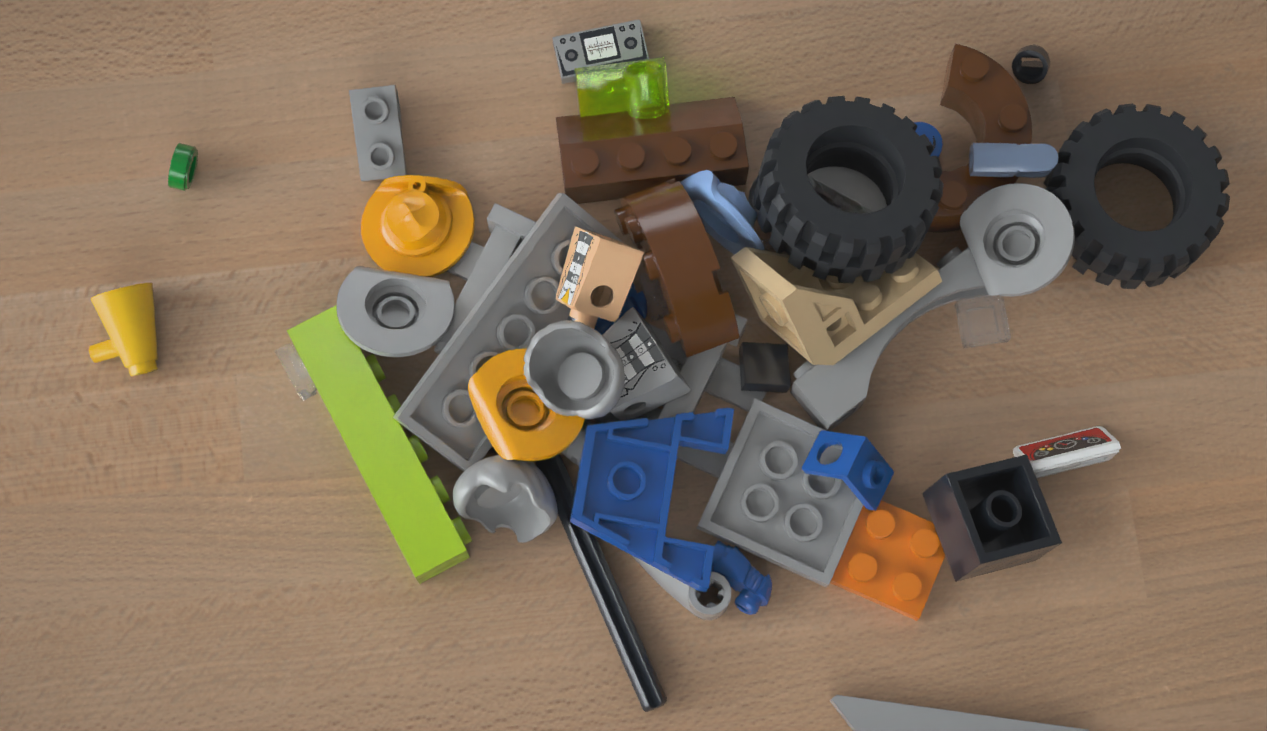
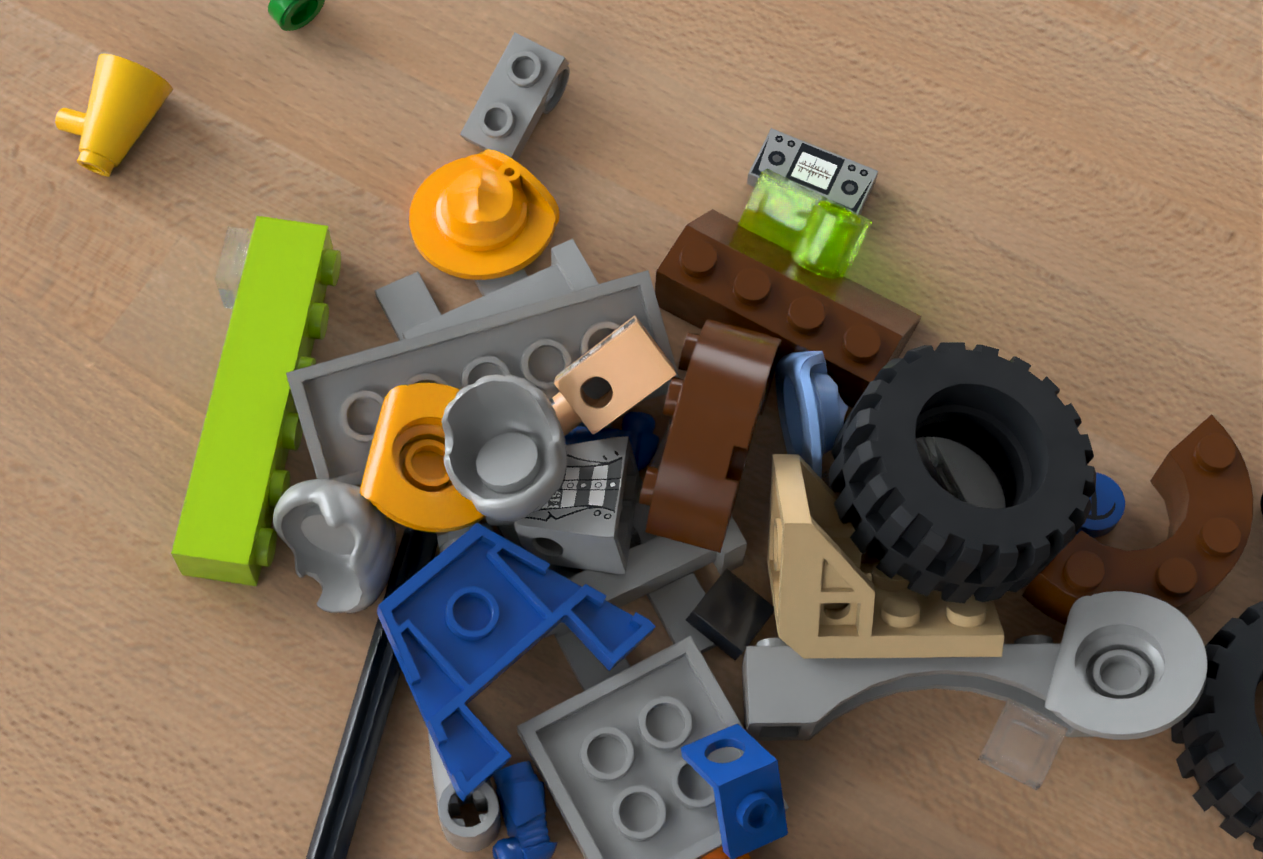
camera: 35 degrees right, 10 degrees down
(394, 311) = (379, 272): light grey hat -> none
(1011, 160) = (1182, 575): sand blue bar -> none

